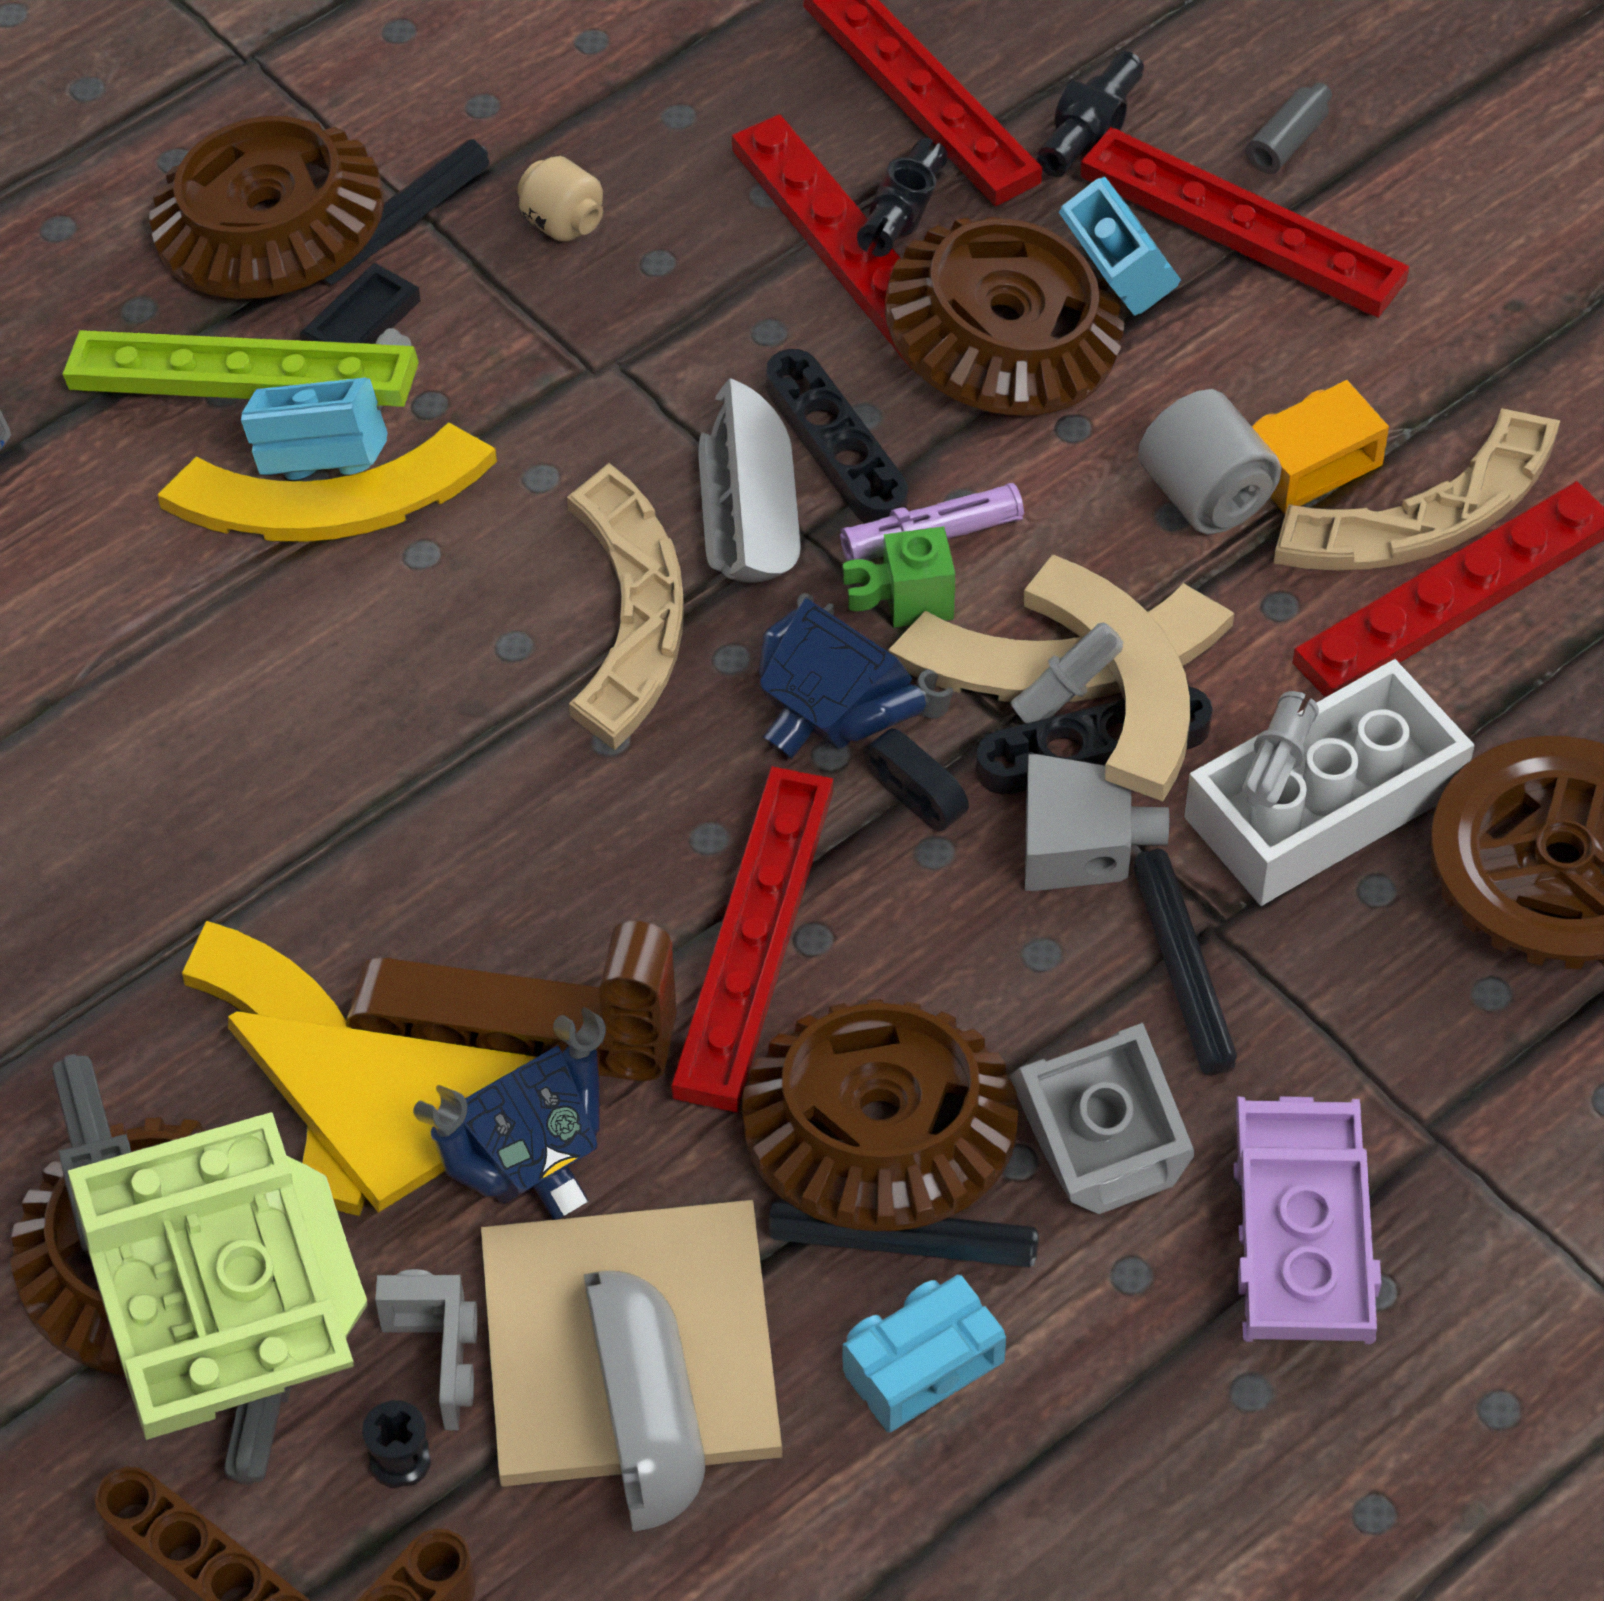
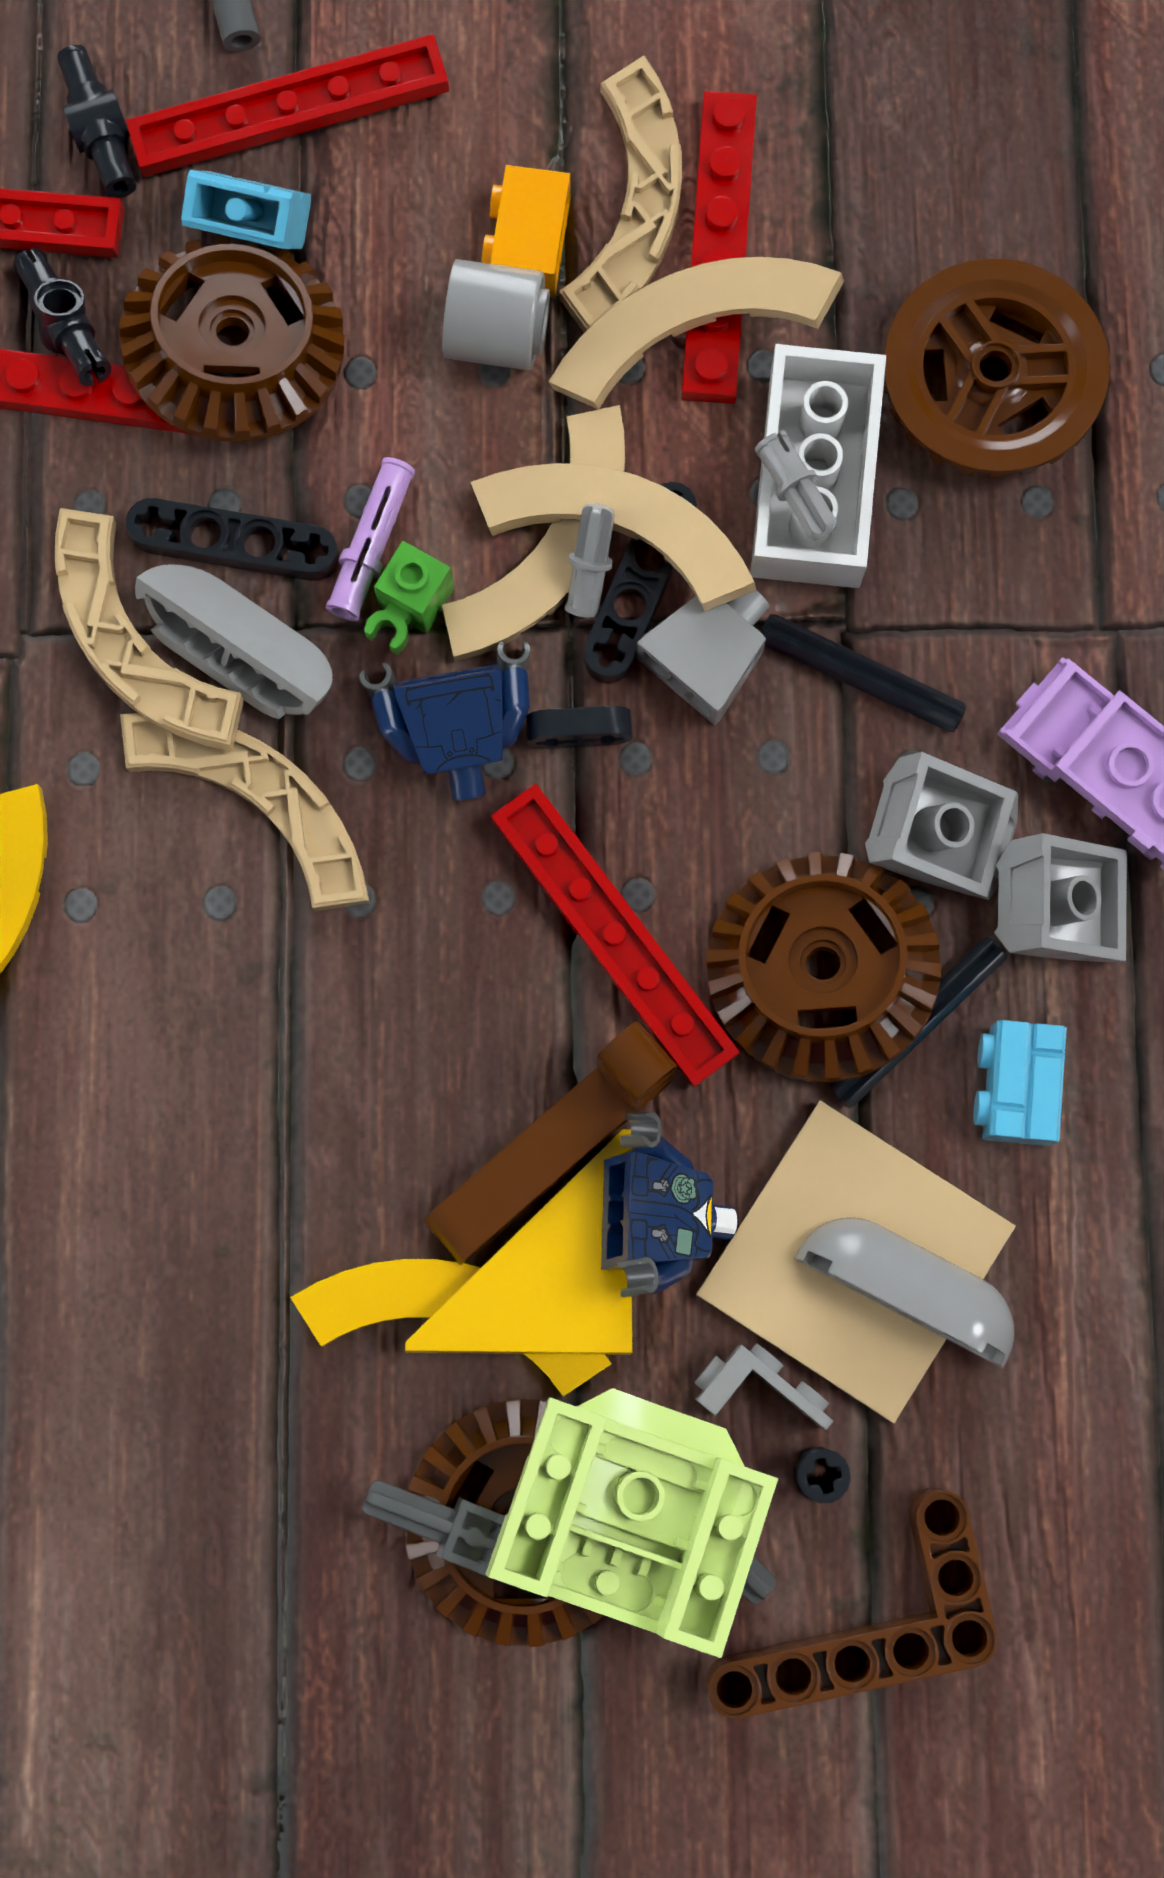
camera: 50 degrees left, 25 degrees up
(663, 417) = (118, 651): none -> tan tile
(1134, 1262) = (1063, 899): none -> light grey slope
(1432, 615) = (686, 301): none -> tan tile

